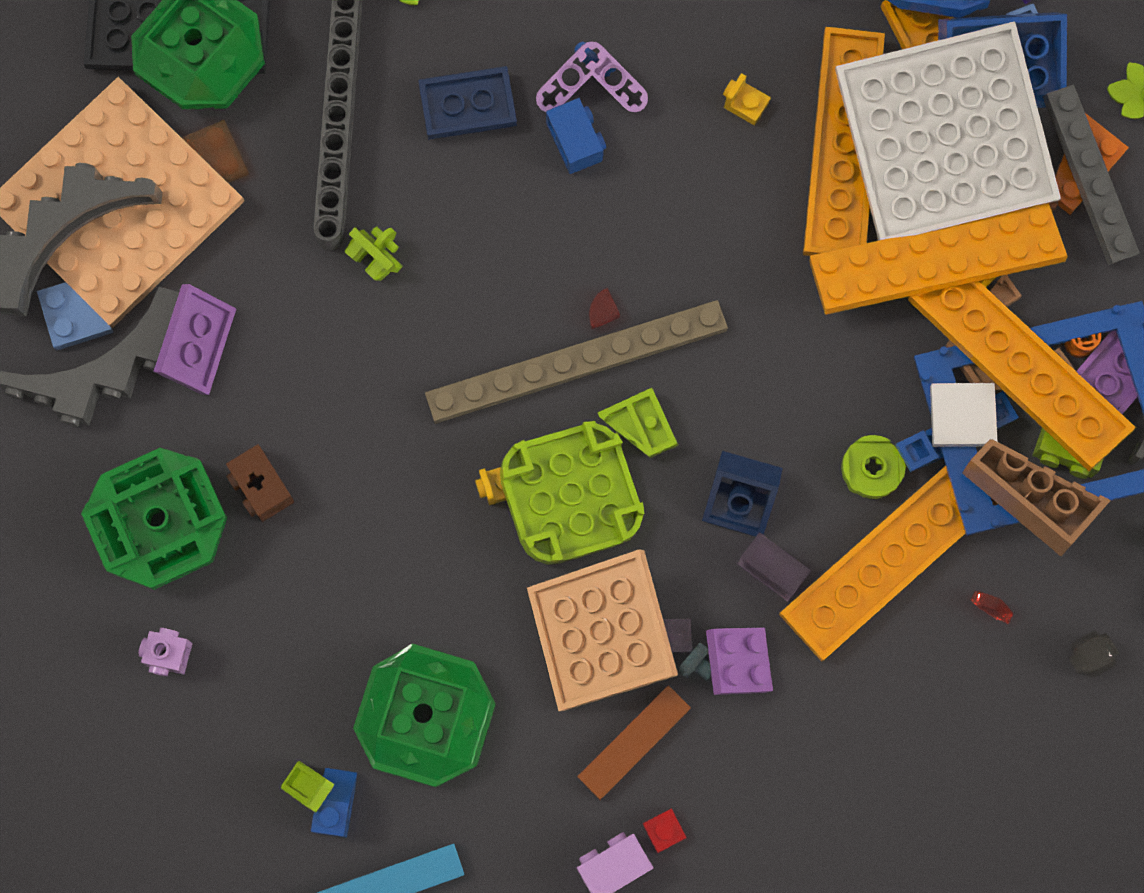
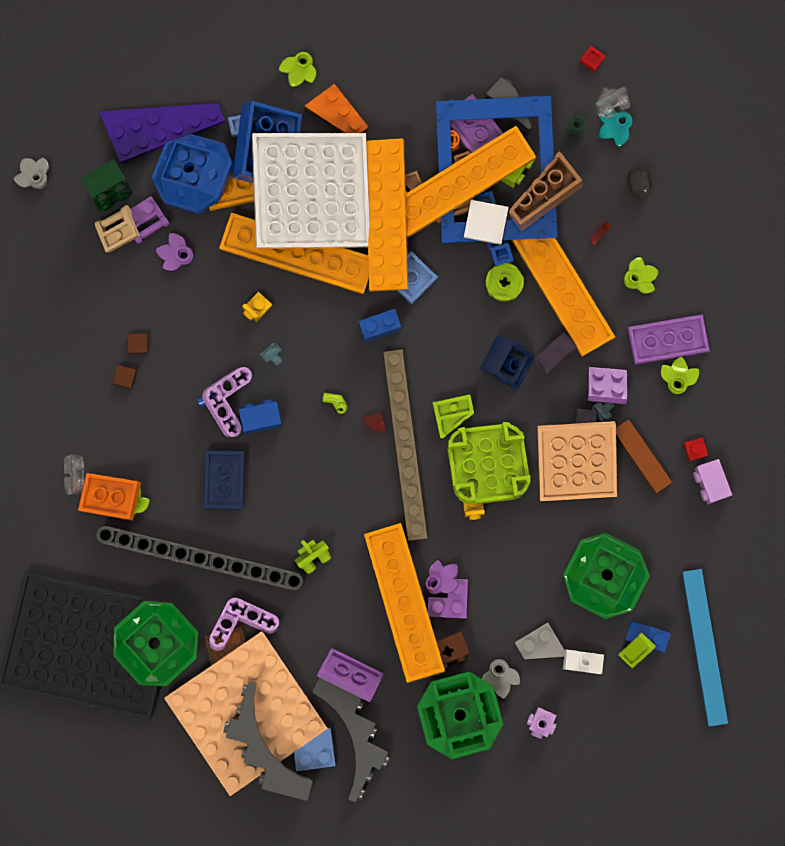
camera: 80 degrees left, 5 degrees up
(225, 577) = (501, 681): none -> light grey plate
(257, 156) = (235, 616): none -> lavender beam
(276, 704) = (583, 661): none -> white plate
(294, 631) = (540, 644): none -> light grey wing
(320, 400) = (404, 603): none -> light orange plate
(334, 483) = (452, 607): none -> medium lavender plate
(373, 454) = (444, 576): none -> medium lavender plate
(625, 246) = (337, 400): none -> lime arm
(676, 134) = (271, 354): none -> clear light blue tile
(757, 285) = (379, 325): none -> blue brick
(786, 778) = (679, 373): none -> lime plate
(840, 752) = (668, 339): none -> medium lavender tile
(848, 330) = (419, 278): none -> medium blue tile
(939, 690) = (643, 274): none -> lime plate
(1091, 174) = (349, 111): dark grey plate -> none

